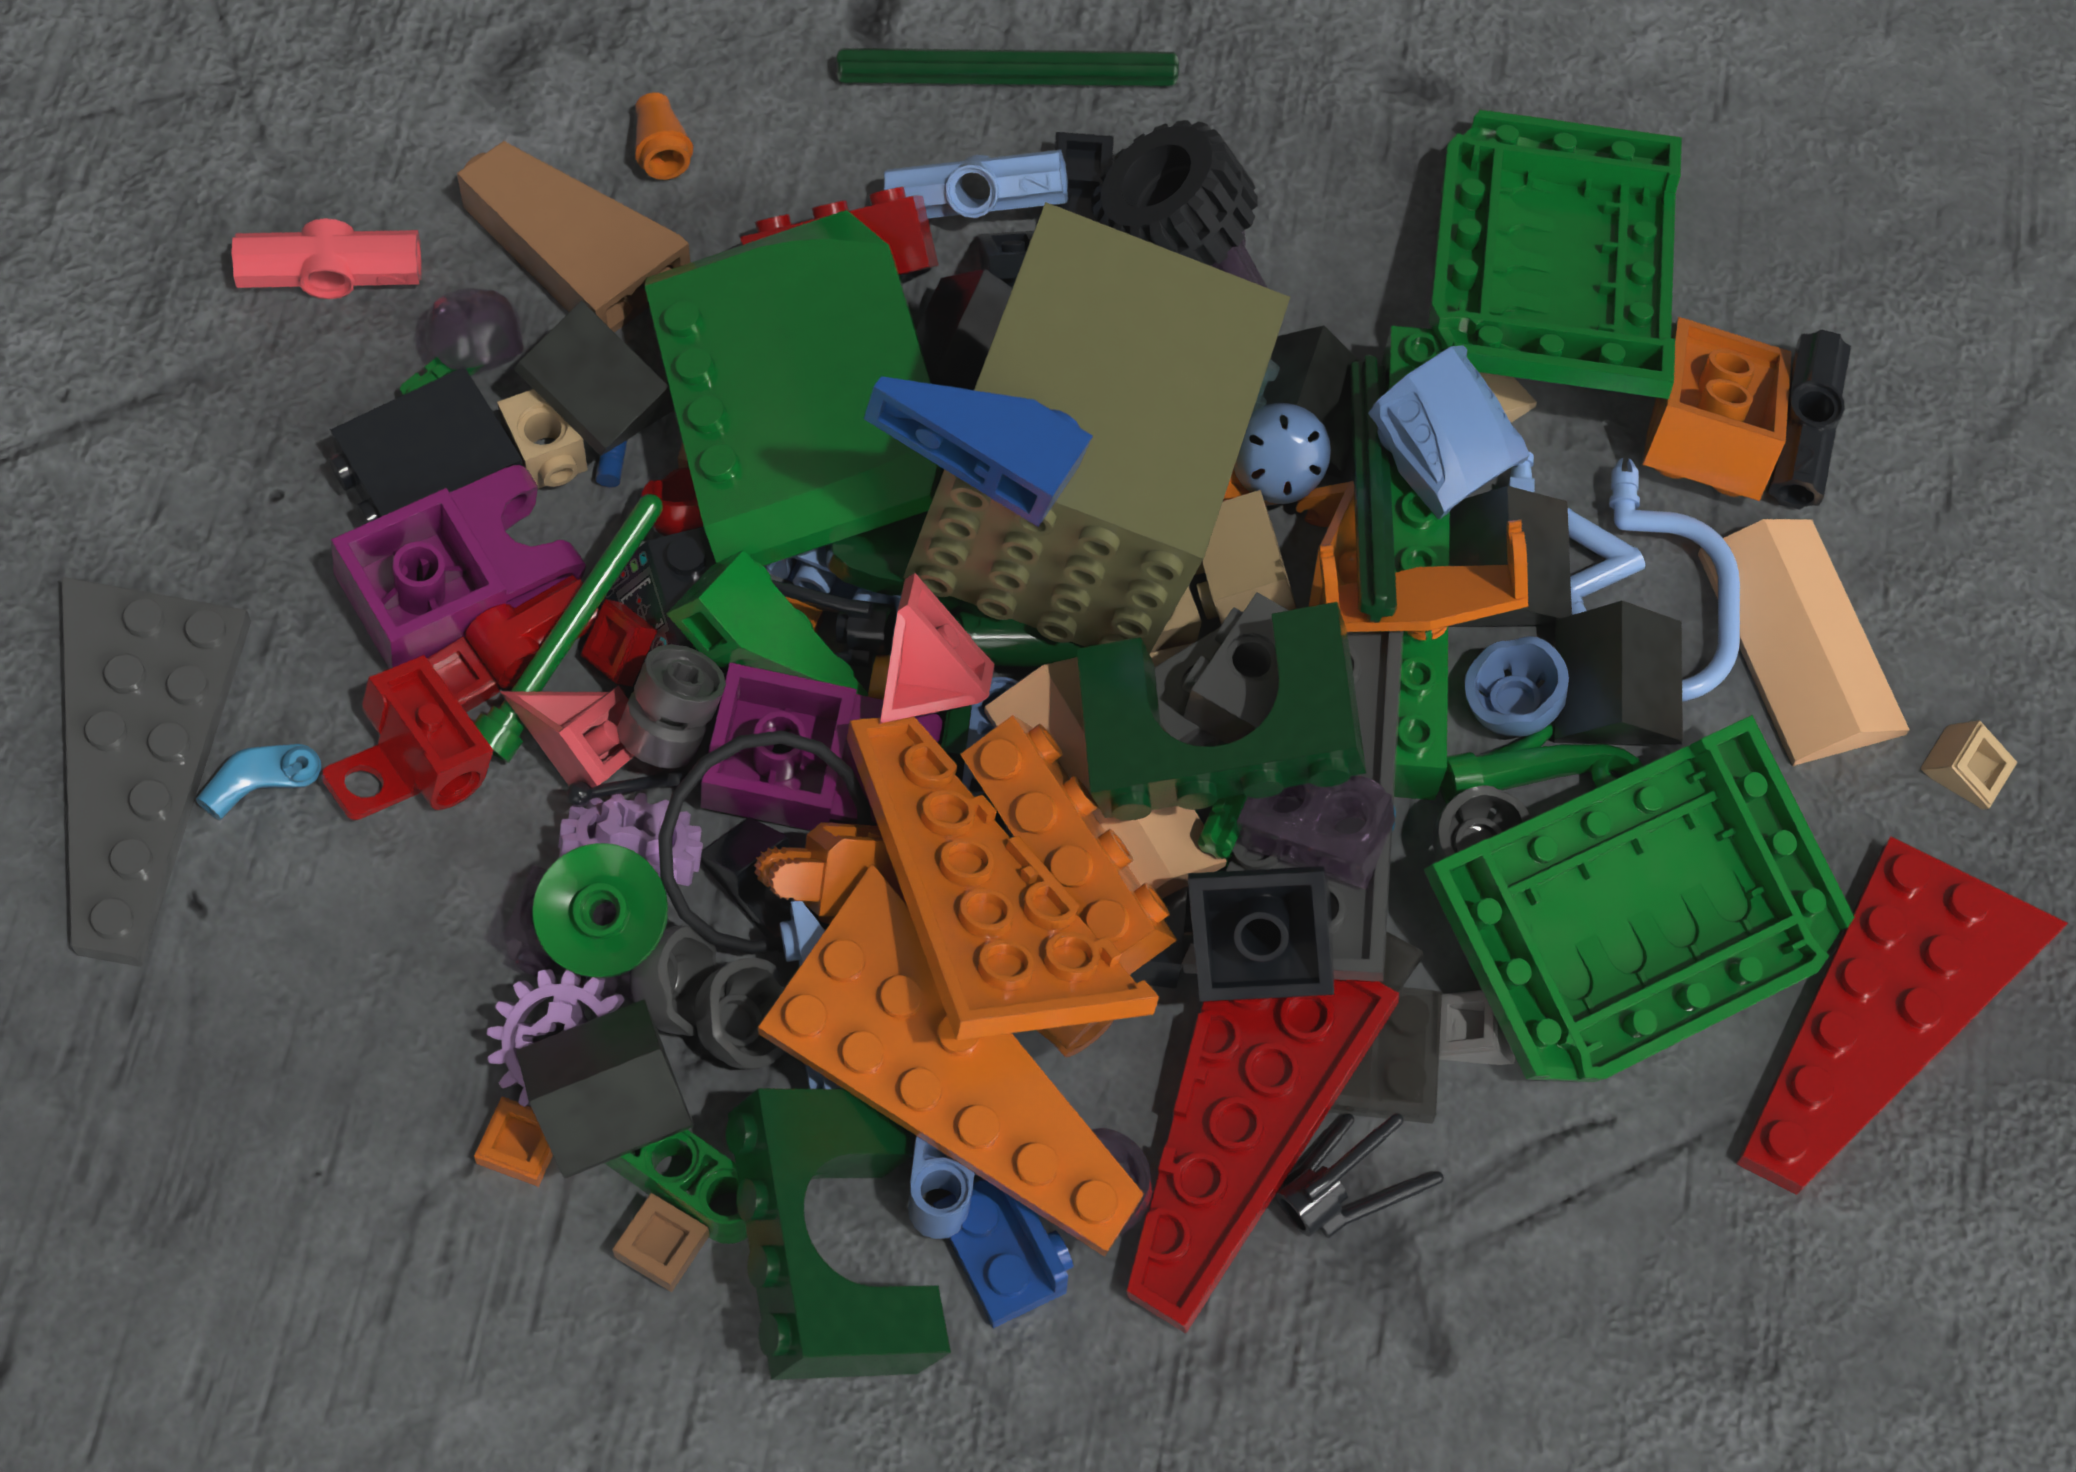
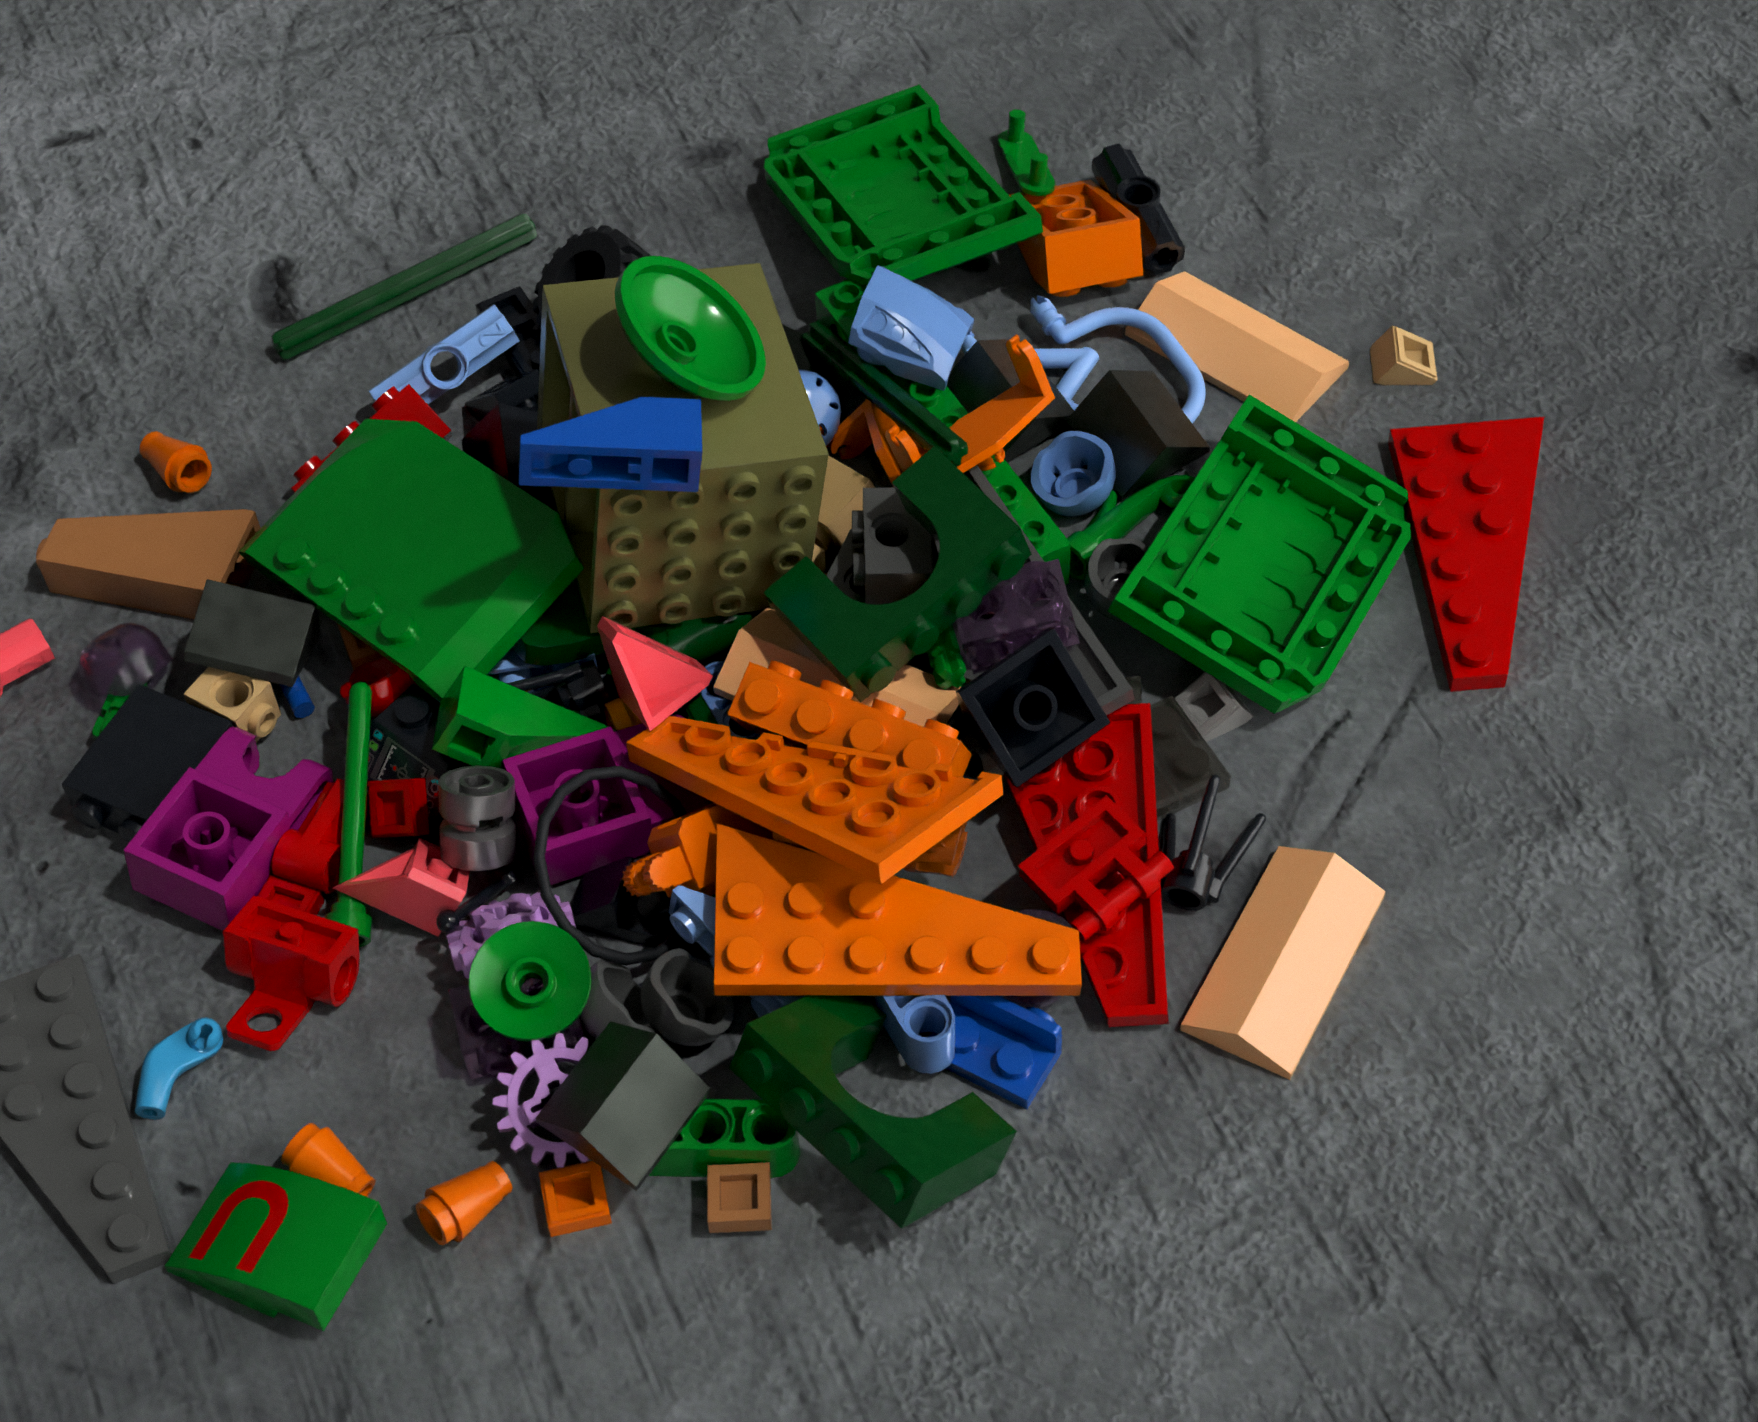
camera: 25 degrees left, 10 degrees down
(232, 1014) = (279, 1242): none -> green slope
(322, 966) = (324, 1157): none -> orange cone
(416, 1081) = (462, 1202): none -> orange cone
(1142, 346) = (689, 329): none -> green dish
(1211, 1115) = (1084, 855): none -> red plate
(1350, 1340) = (1284, 959): none -> light nougat slope
(1737, 288) = (1024, 158): none -> green piece

